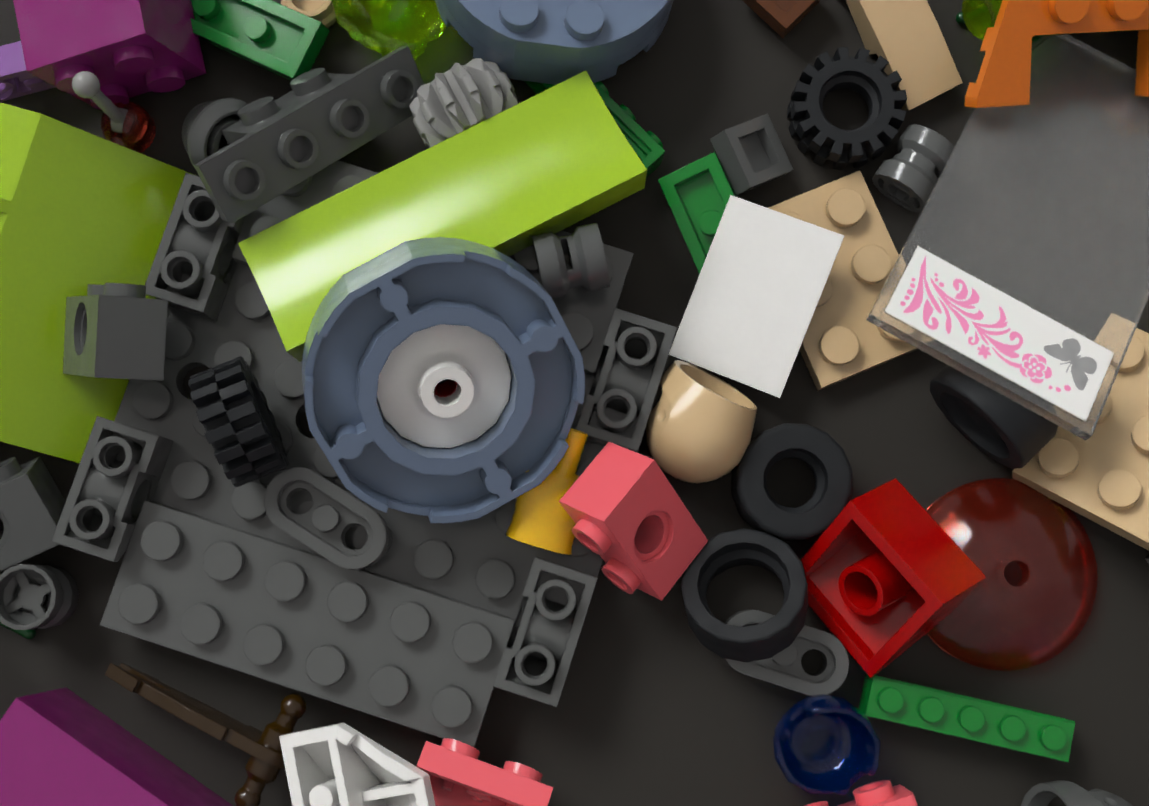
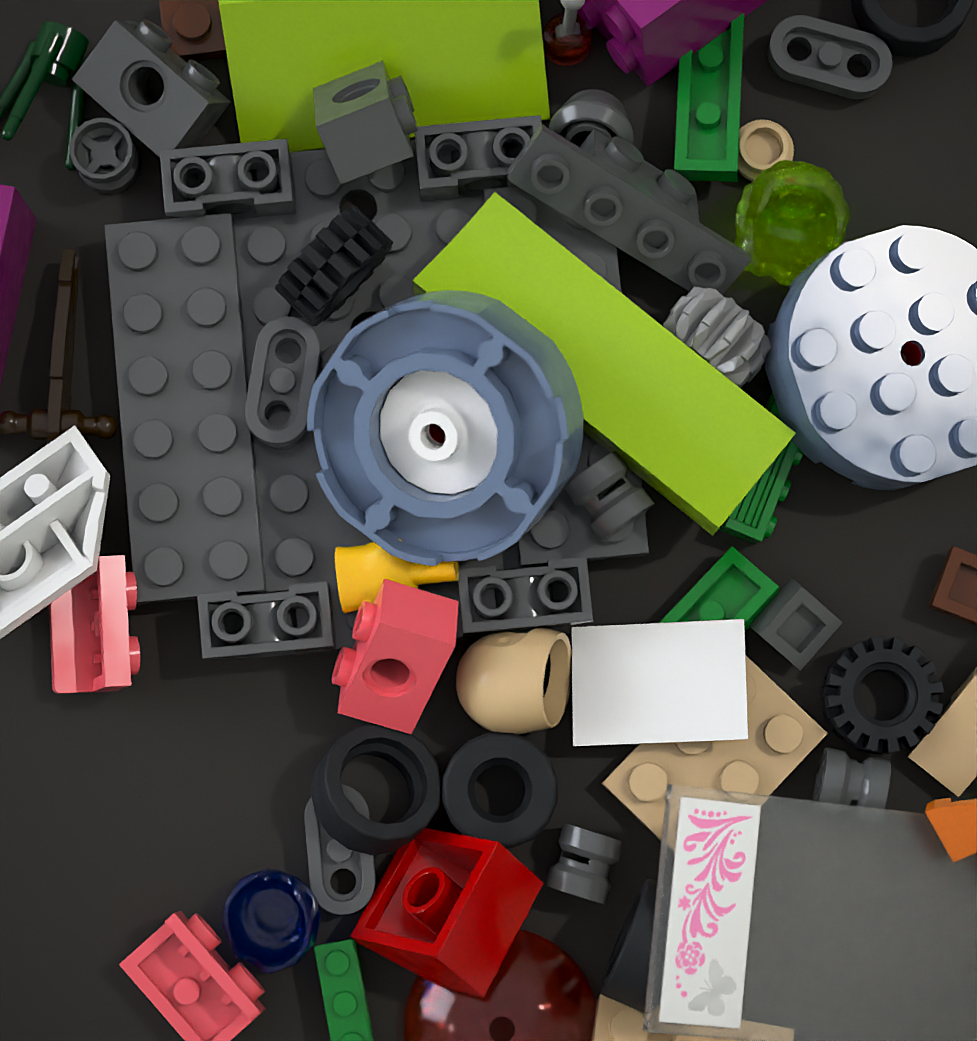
camera: 60 degrees right, 0 degrees up
(900, 444) = (579, 878): none -> dark grey wheel

